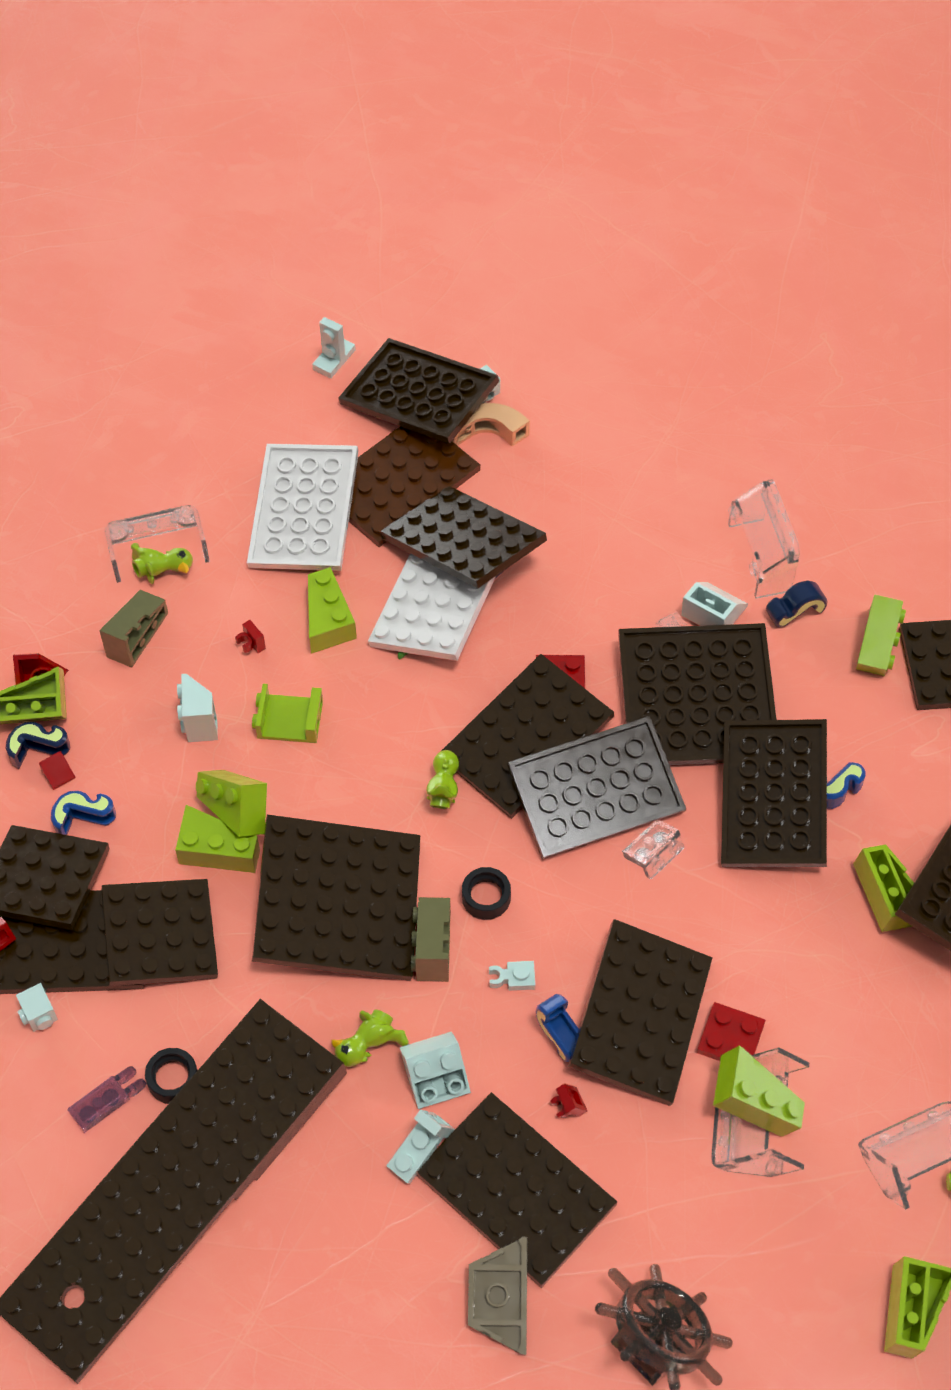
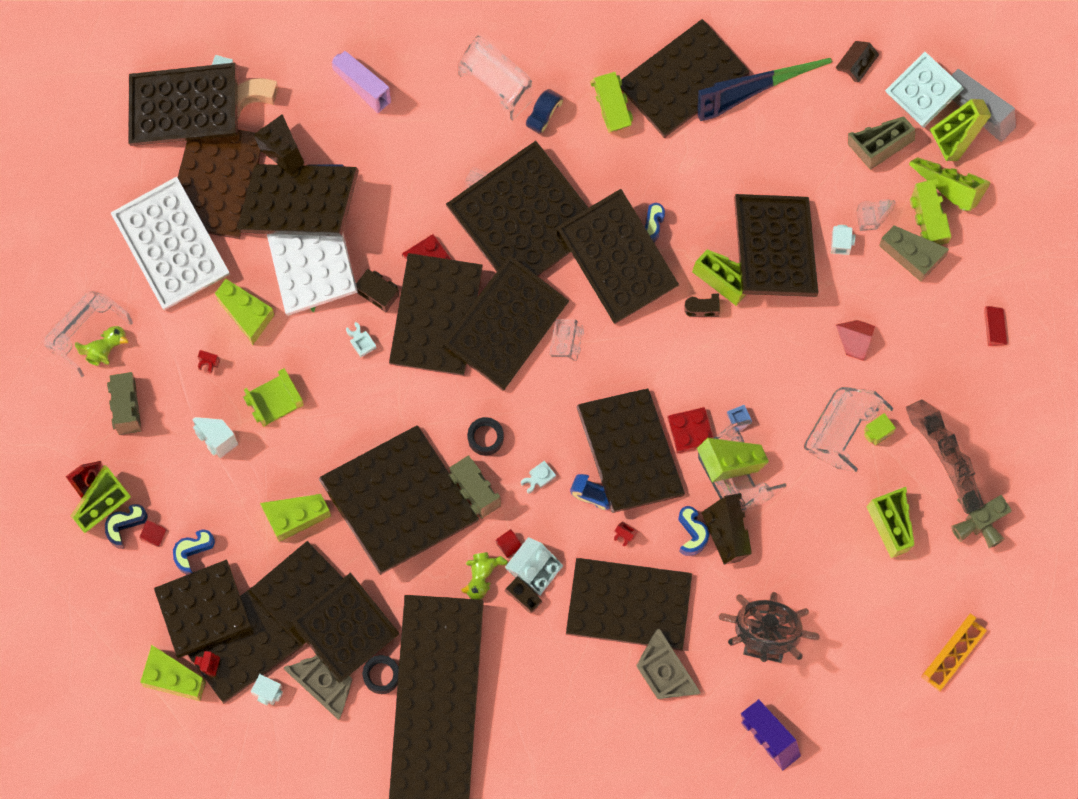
camera: 35 degrees left, 15 degrees up
(104, 1040) = (321, 684): none -> dark tan wing
(105, 1099) = (352, 716): hinge -> none
(169, 993) = (344, 627): none -> dark brown plate
(234, 800) = (288, 479): lime wedge -> none
(334, 348) = (97, 108): bracket -> none
(398, 1092) = (523, 595): none -> dark brown leg
(419, 1145) = (558, 617): light aqua bracket -> none
(425, 714) = (361, 341): none -> light aqua plate
(425, 1024) = (508, 543): none -> red slope
(442, 787) = (410, 385): lime animal -> none
(481, 674) = (377, 290): none -> dark brown brick
(487, 476) = (279, 145): none -> dark brown wedge
(619, 471) = (362, 81): none -> lavender slope
(659, 1154) = (697, 530): none -> blue animal
(694, 1175) = (728, 529): none -> dark brown wedge
(711, 605) = (492, 146): light aqua slope -> none
(805, 1052) = (738, 414): none -> medium blue plate
(839, 908) = (702, 307): none -> dark brown leg

